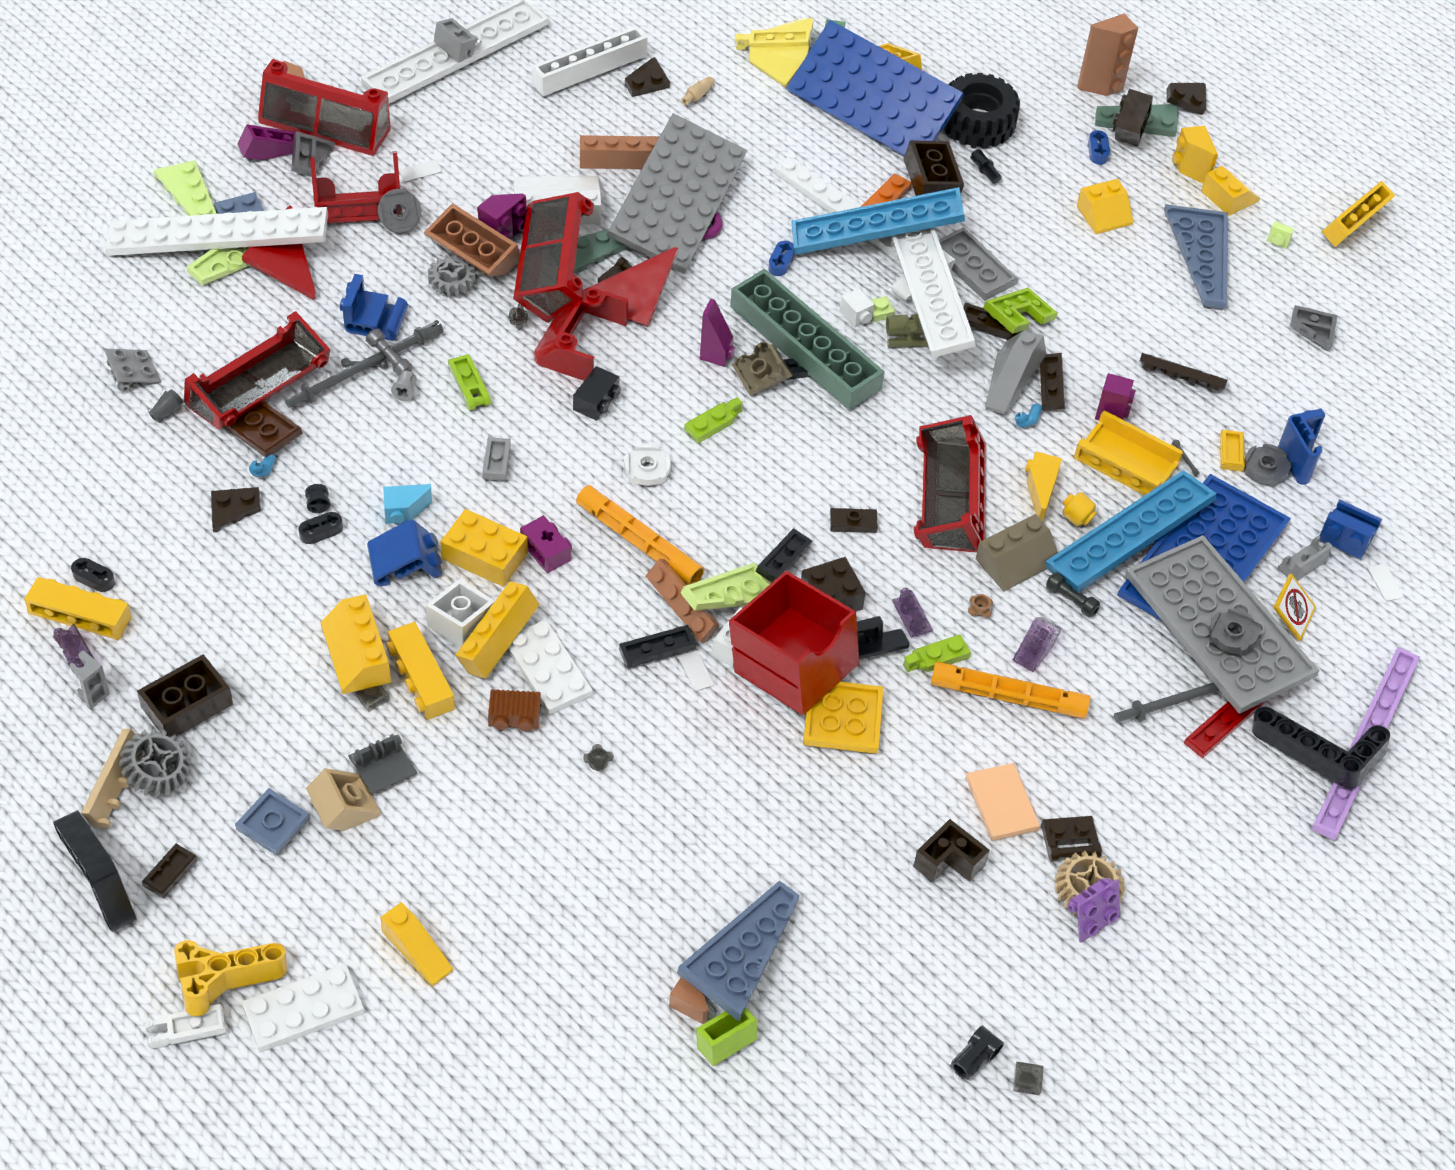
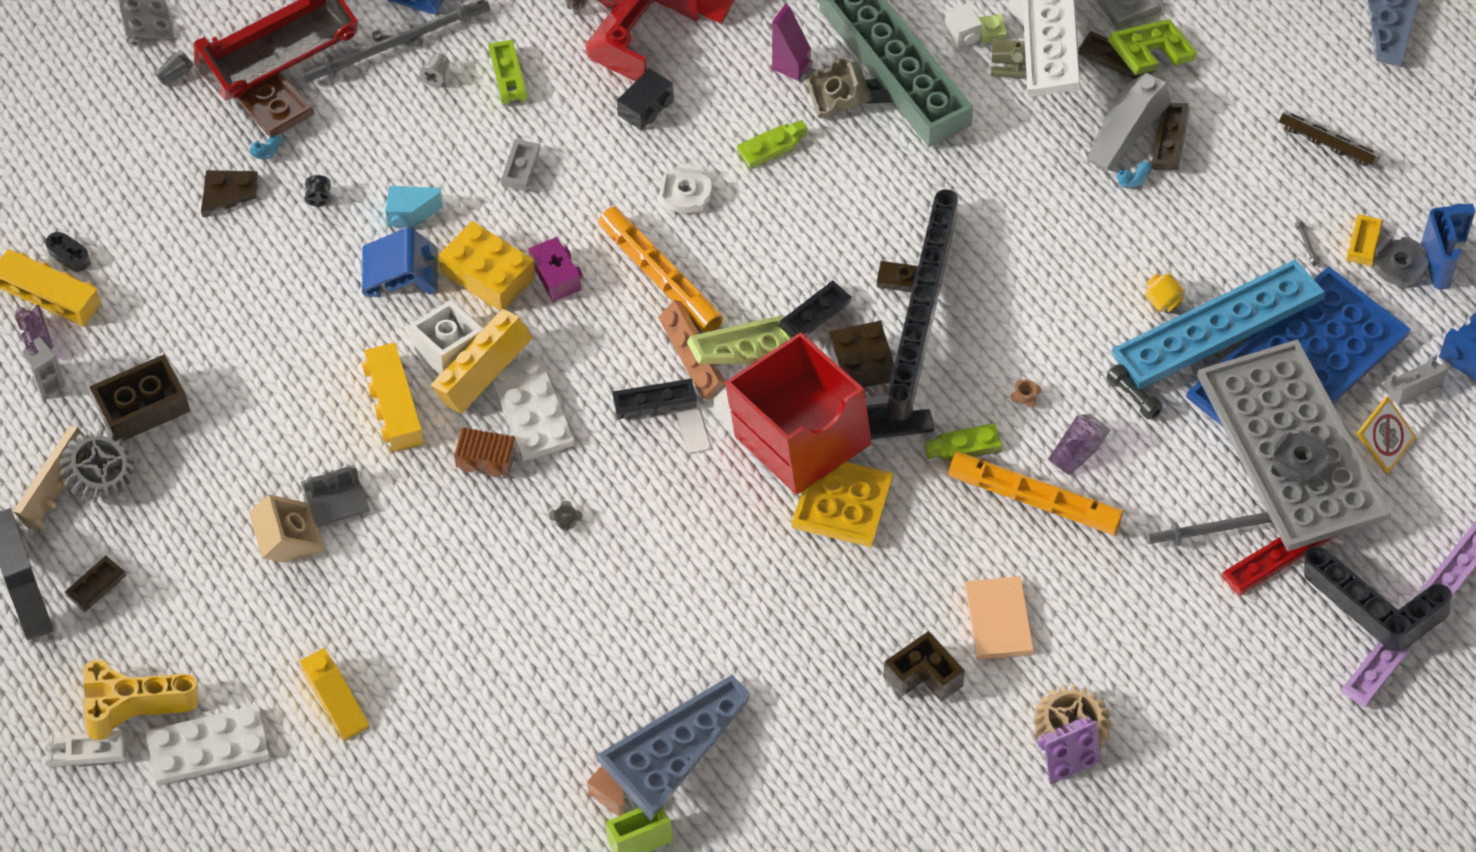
camera: 15 degrees right, 5 degrees up
(272, 821) = (209, 544): sand blue plate -> none
(320, 527) = (316, 224): black beam -> none
(355, 645) = (328, 362): yellow slope -> none
(372, 697) = (338, 418): clear smoke plate -> none
(376, 339) = (412, 13): flat silver piece -> none
(879, 541) = (922, 305): none -> black beam
(911, 613) = (945, 393): clear purple hinge -> none
(952, 485) = (1026, 250): windscreen -> none
(1017, 552) = (1081, 335): dark tan slope -> none
(1041, 480) = (1132, 249): yellow slope -> none
(1069, 832) = (1065, 660): dark brown plate -> none
(1115, 396) = (1237, 164): magenta brick -> none
(1128, 454) = (1239, 232): yellow panel -> none

